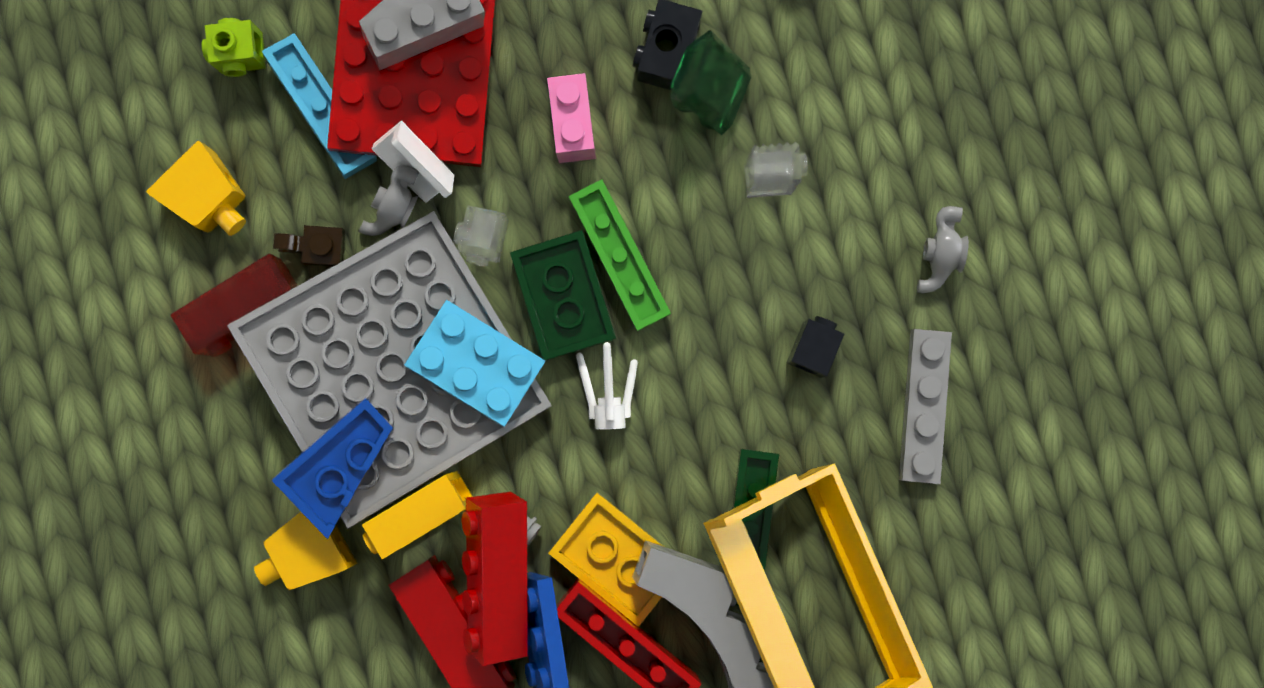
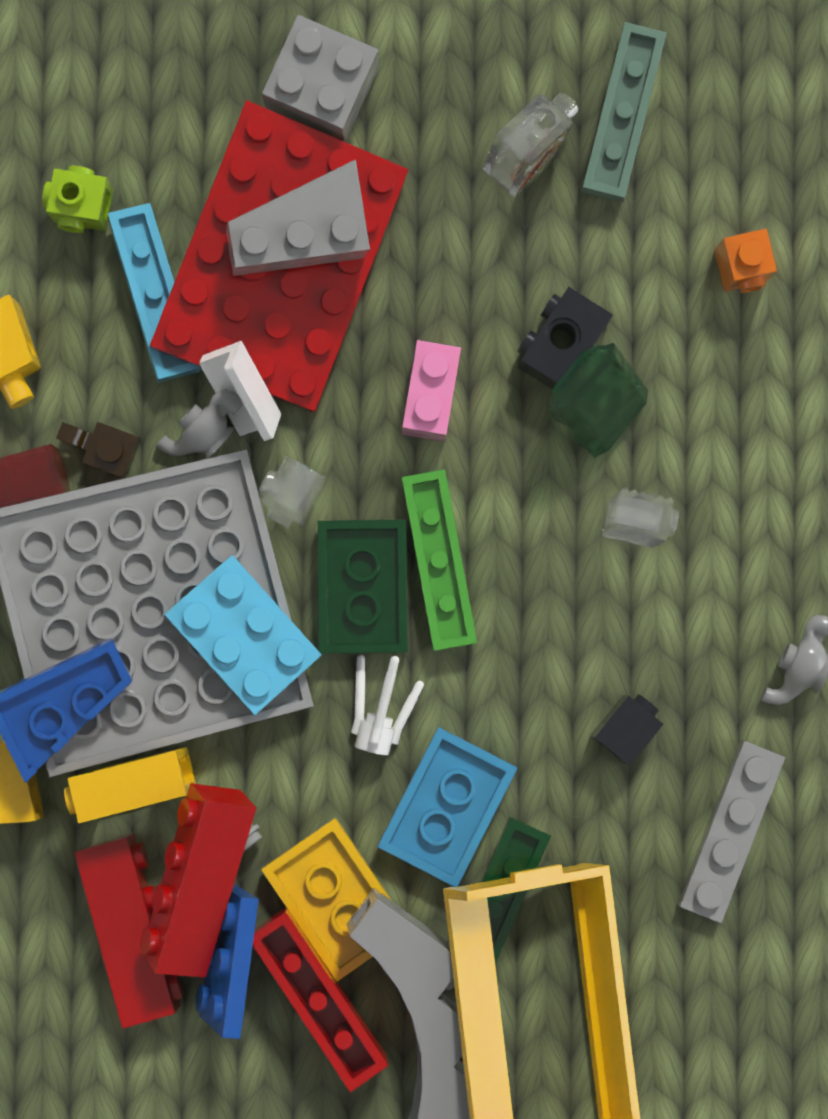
camera: 10 degrees right, 0 degrees up
(686, 456) = (447, 807): none -> dark azure plate

